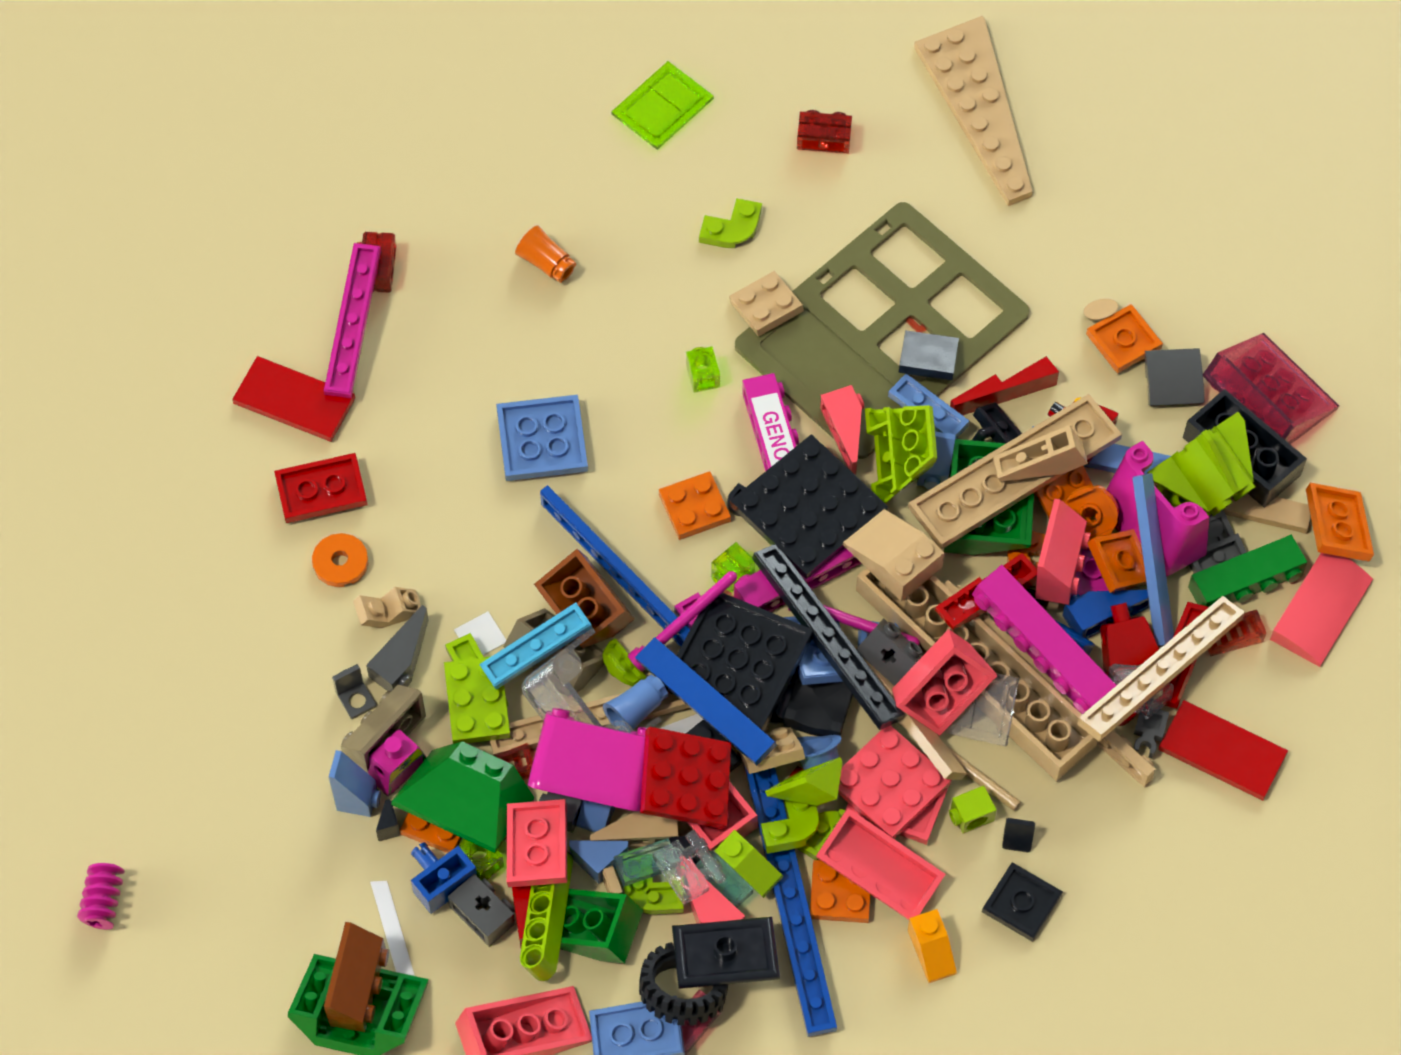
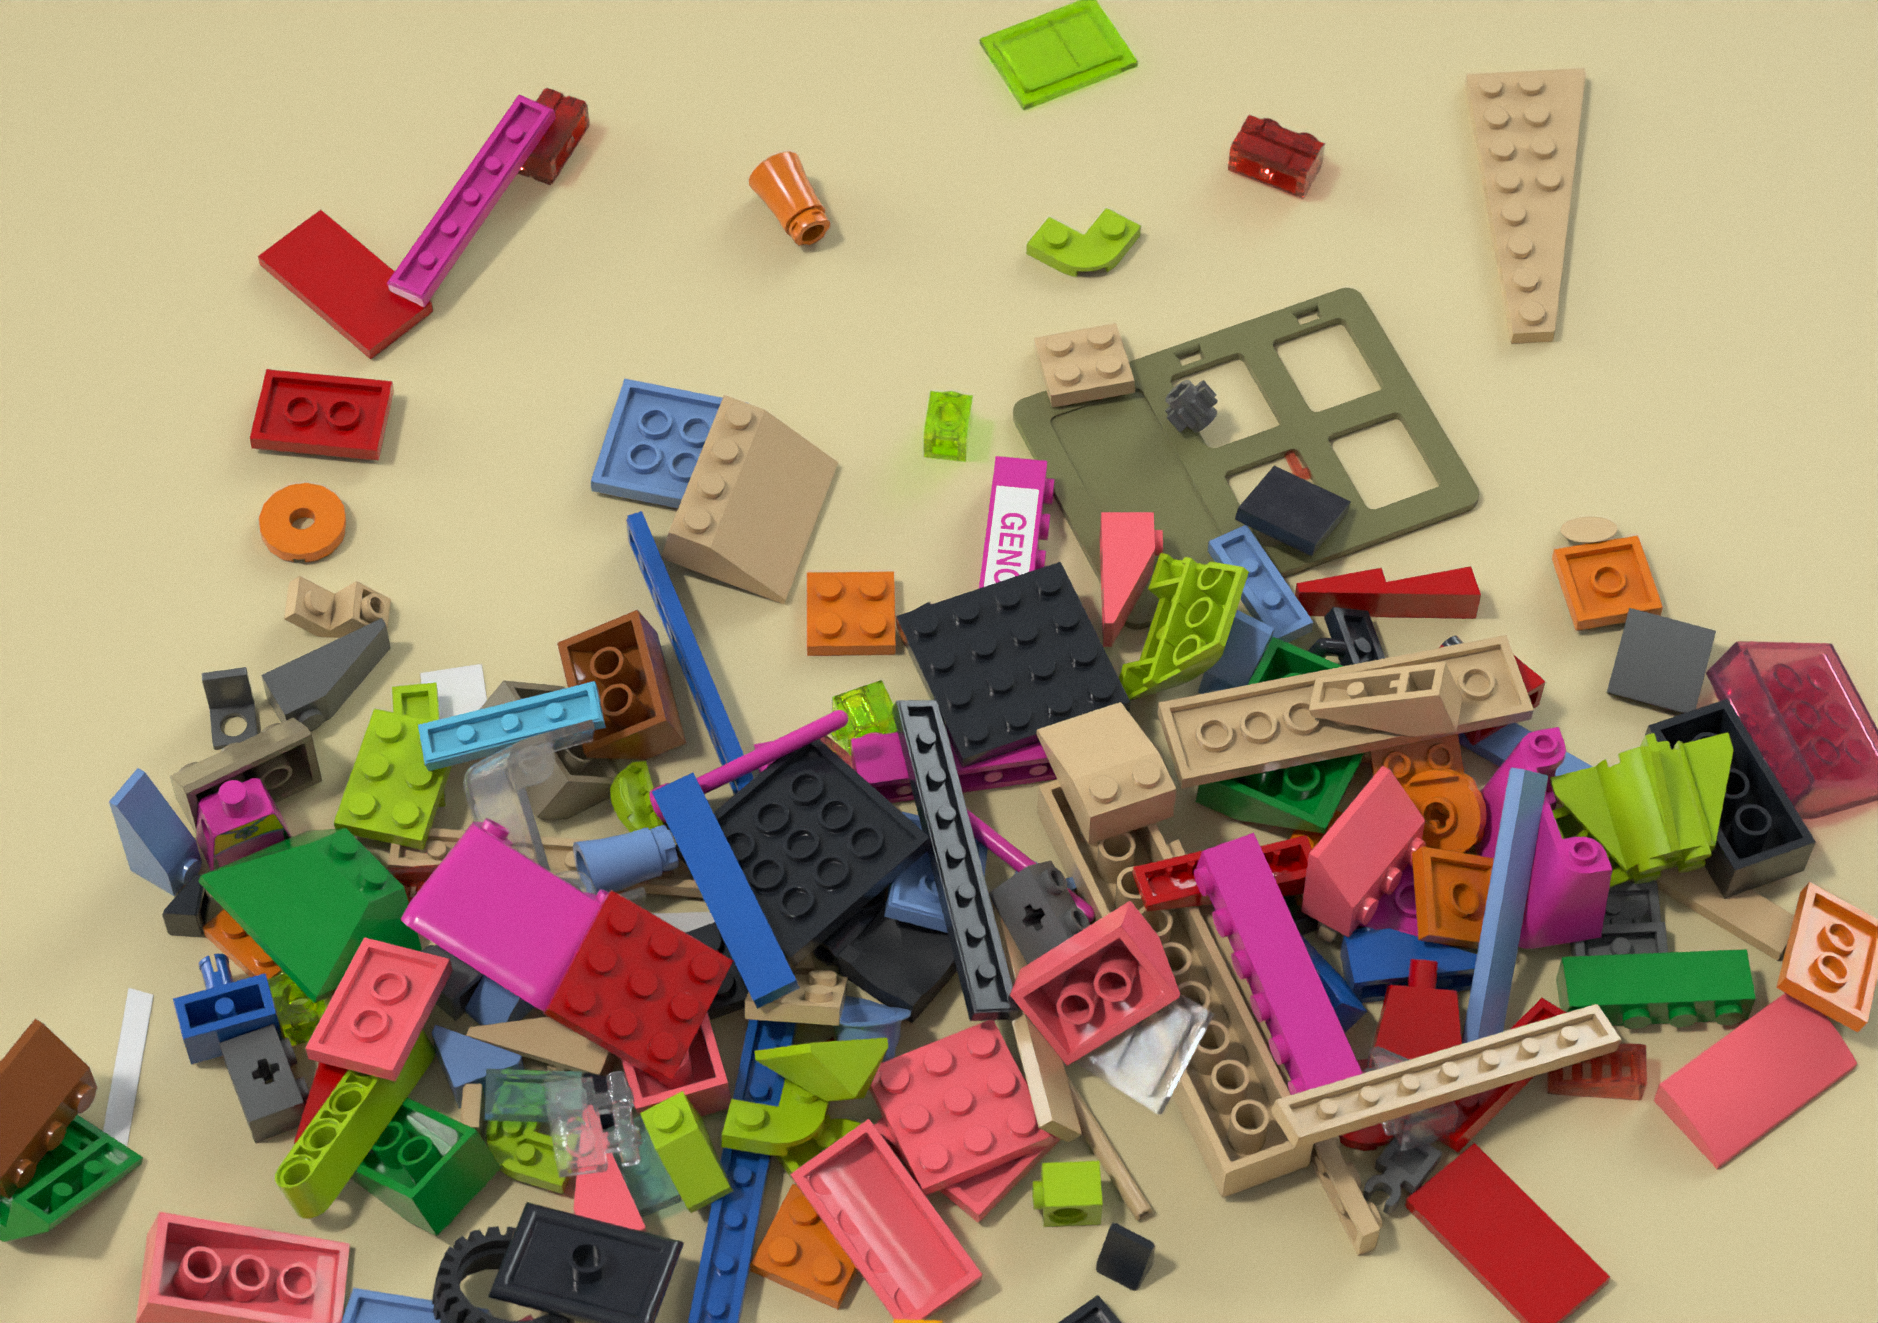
camera: 20 degrees right, 5 degrees down
(606, 457) = (750, 502): none -> tan slope
(843, 309) = (1191, 406): none -> dark grey gear

